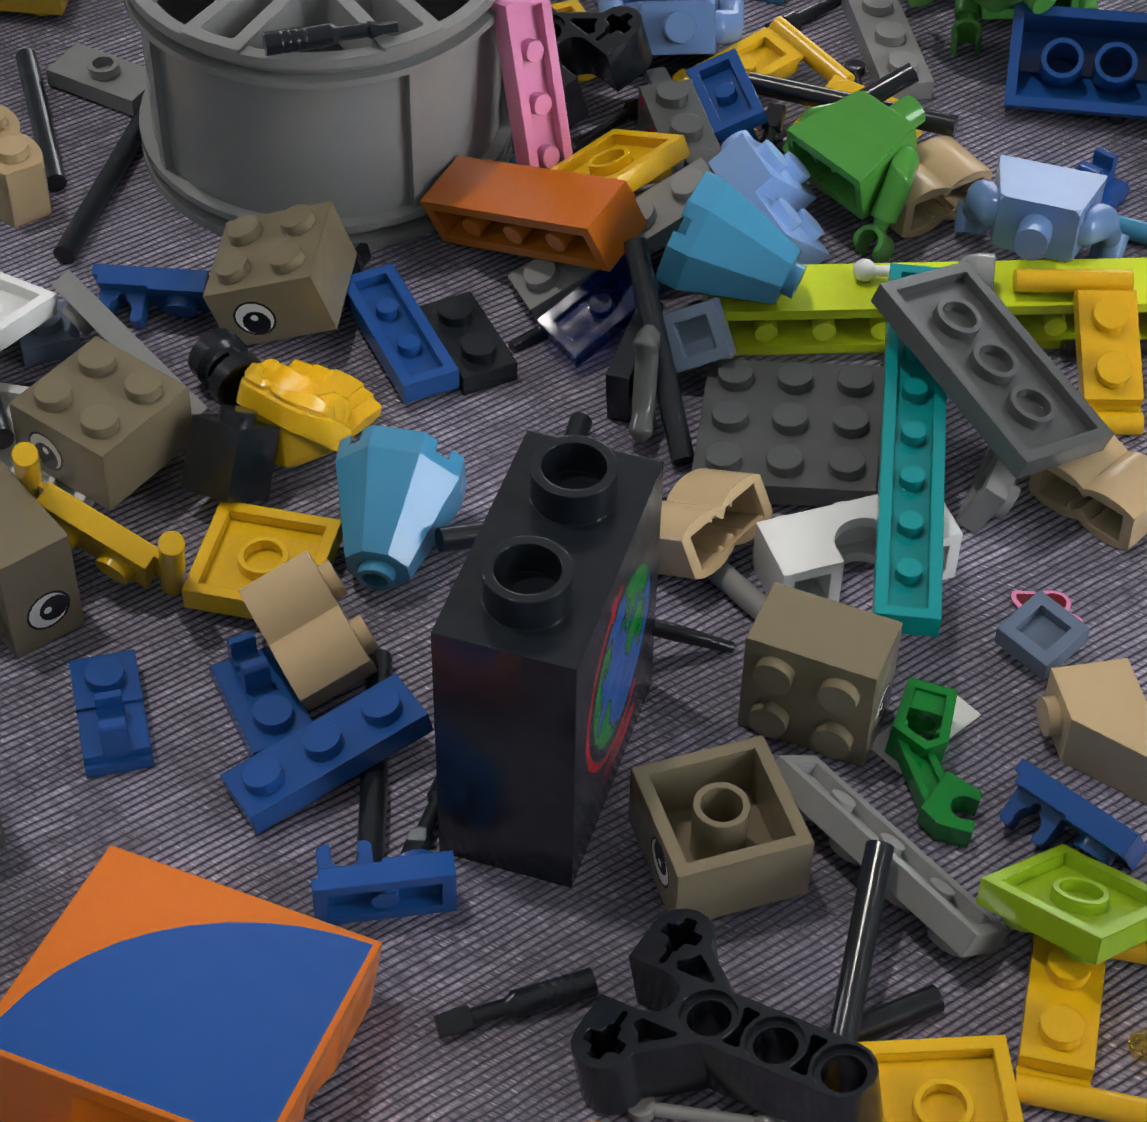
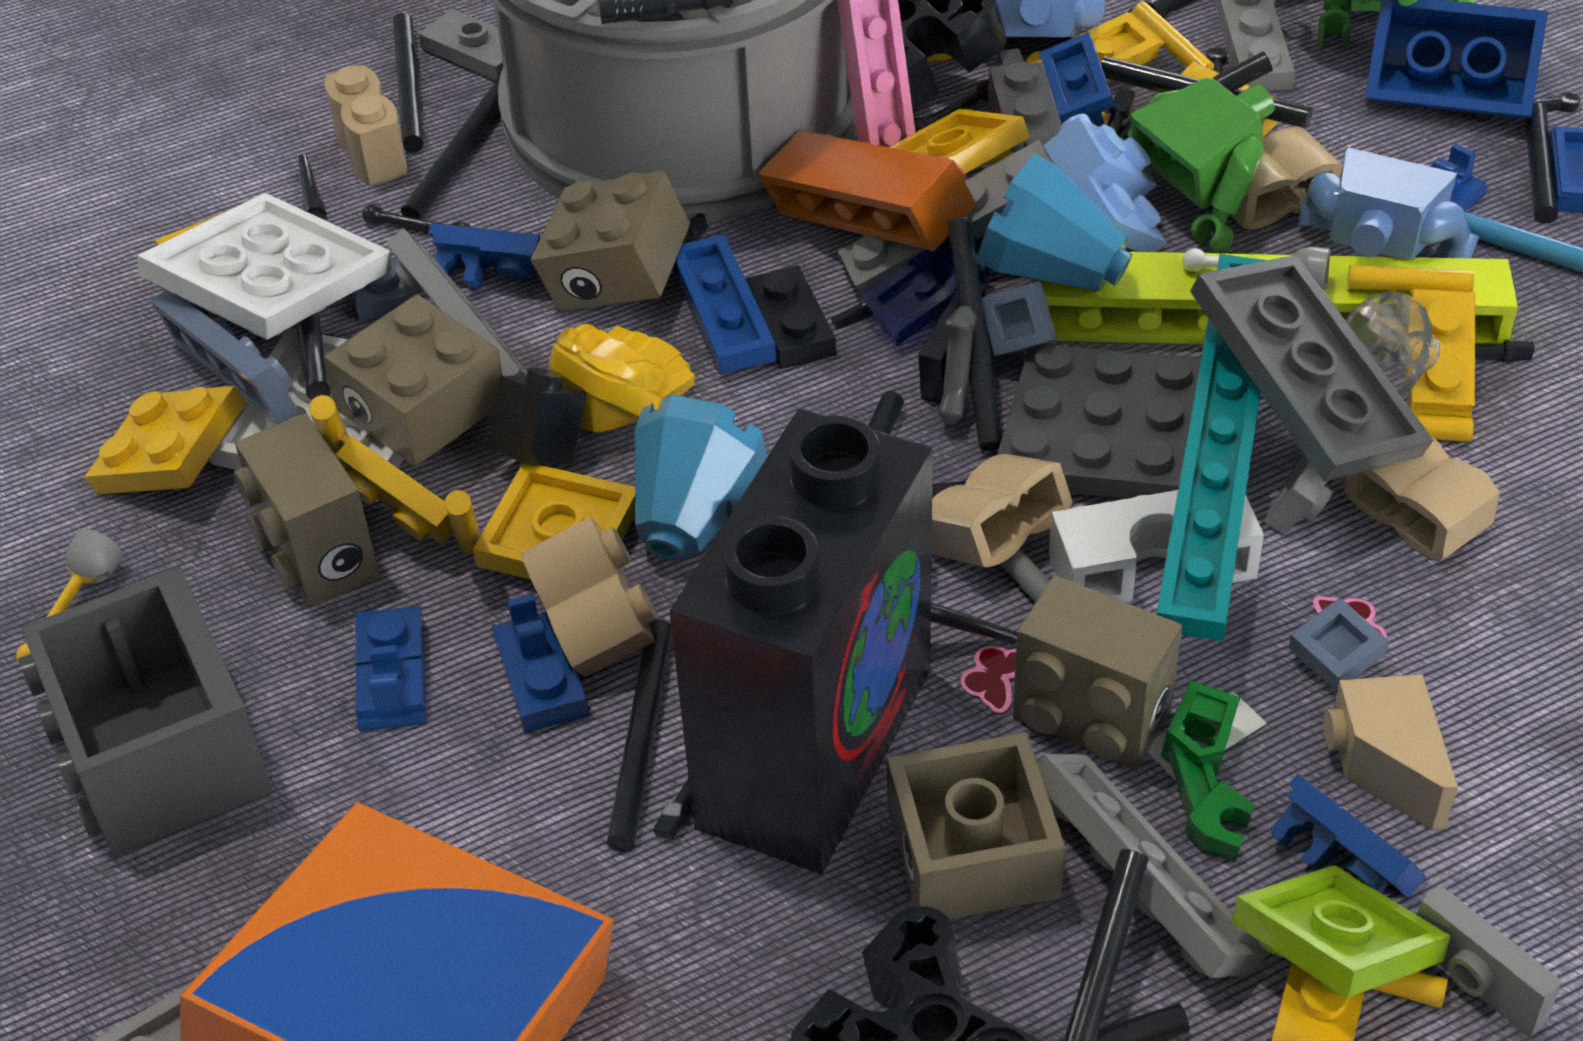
camera: 10 degrees right, 0 degrees up
(26, 257) = (374, 214): none -> black hinge
(220, 363) = (540, 322): black wheel -> none
(326, 753) = (588, 723): blue plate -> none
(394, 888) = (634, 863): blue plate -> none
(520, 1002) = (752, 989): black piece -> none
(713, 685) = (991, 677): none -> dark red sticker
(1070, 335) = (1396, 336): none -> clear plate

